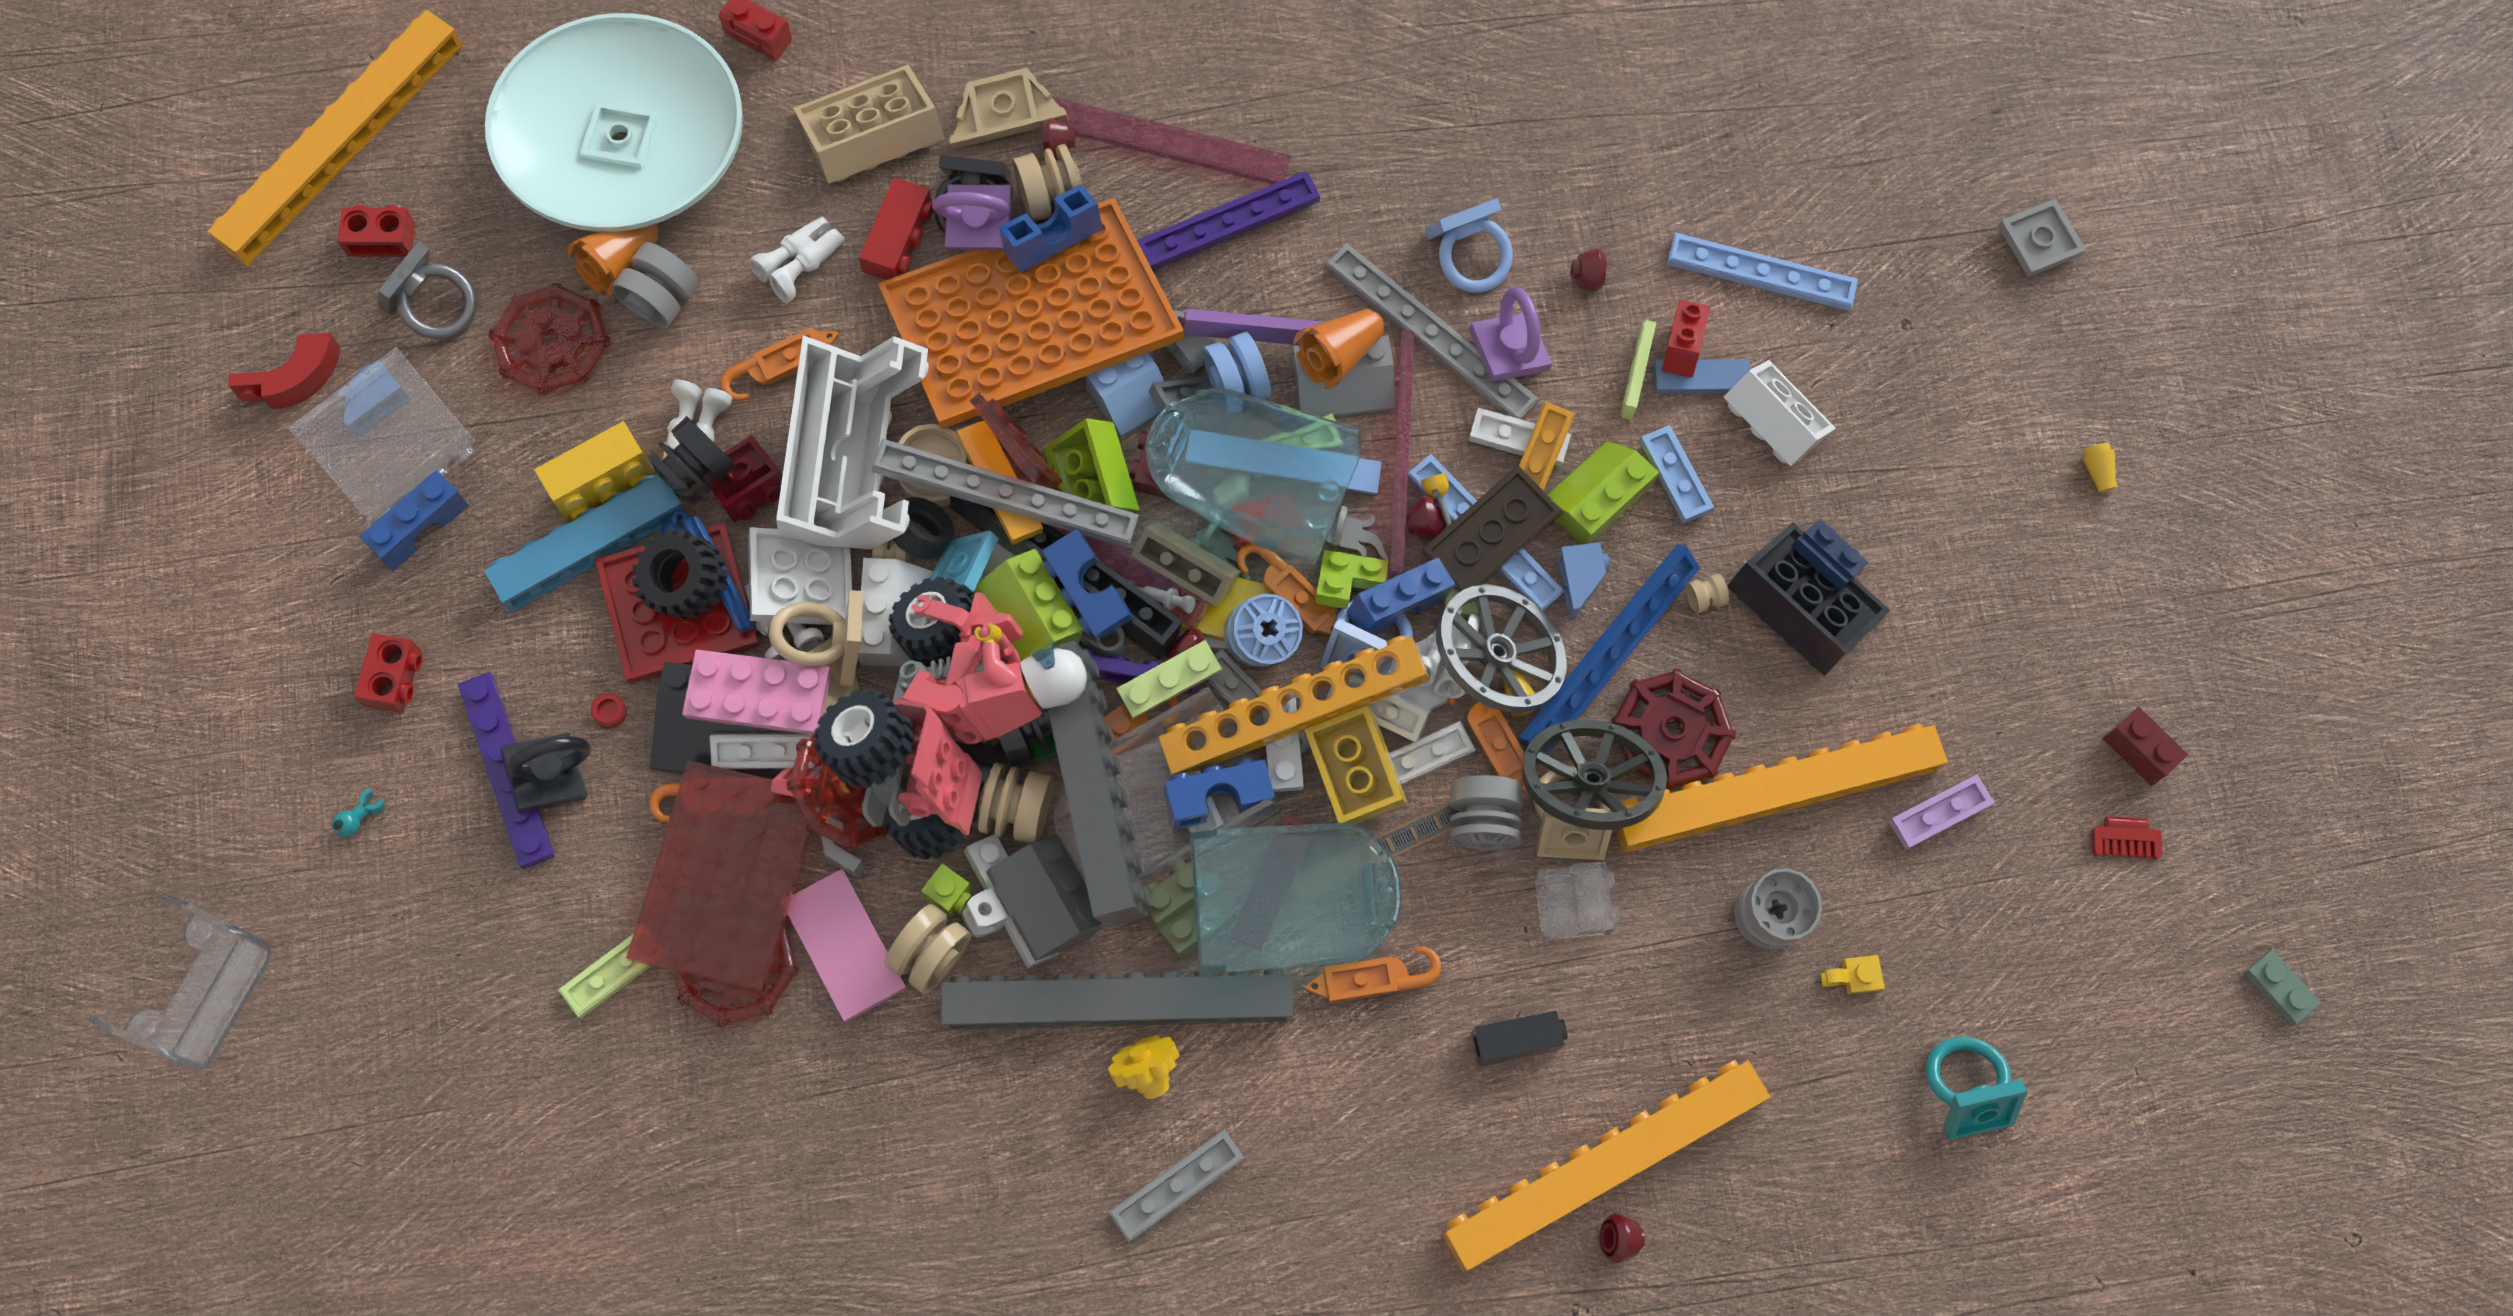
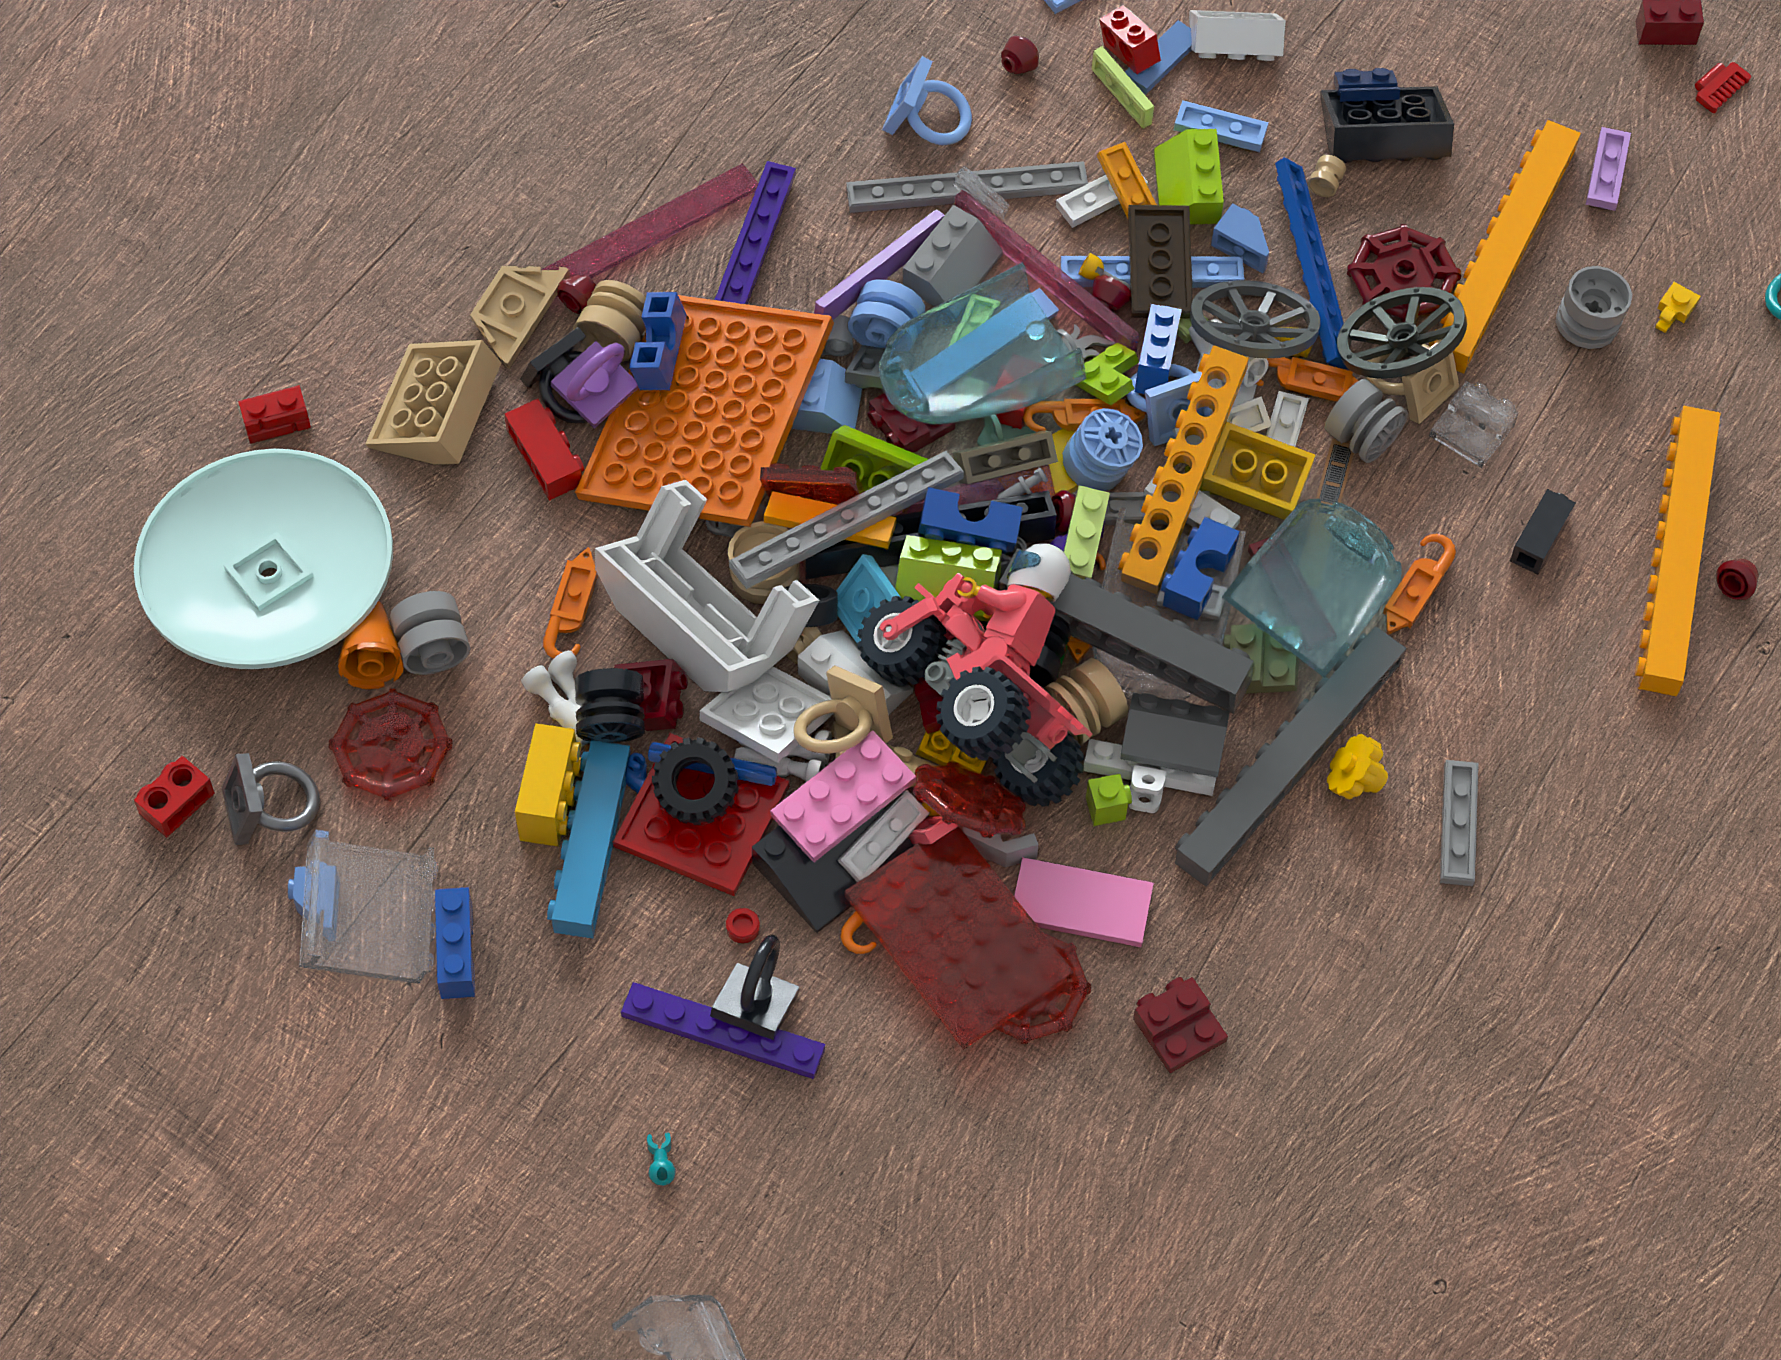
camera: 45 degrees left, 10 degrees down
(294, 380) = (244, 946): red arch -> none
(335, 138) = (58, 767): light orange brick -> none
(378, 673) = (560, 1055): red brick -> none
(601, 980) = (956, 1081): yellowish green tile -> none
(795, 1107) = (1179, 1023): none -> dark red plate
(810, 246) = (493, 517): white piece -> none
(927, 949) = (1144, 838): tan wheel -> none
(1337, 345) = (940, 235): orange cone -> none
(1422, 336) = (974, 186): none -> clear plate
(1511, 343) = (1024, 143): medium lavender tile -> none

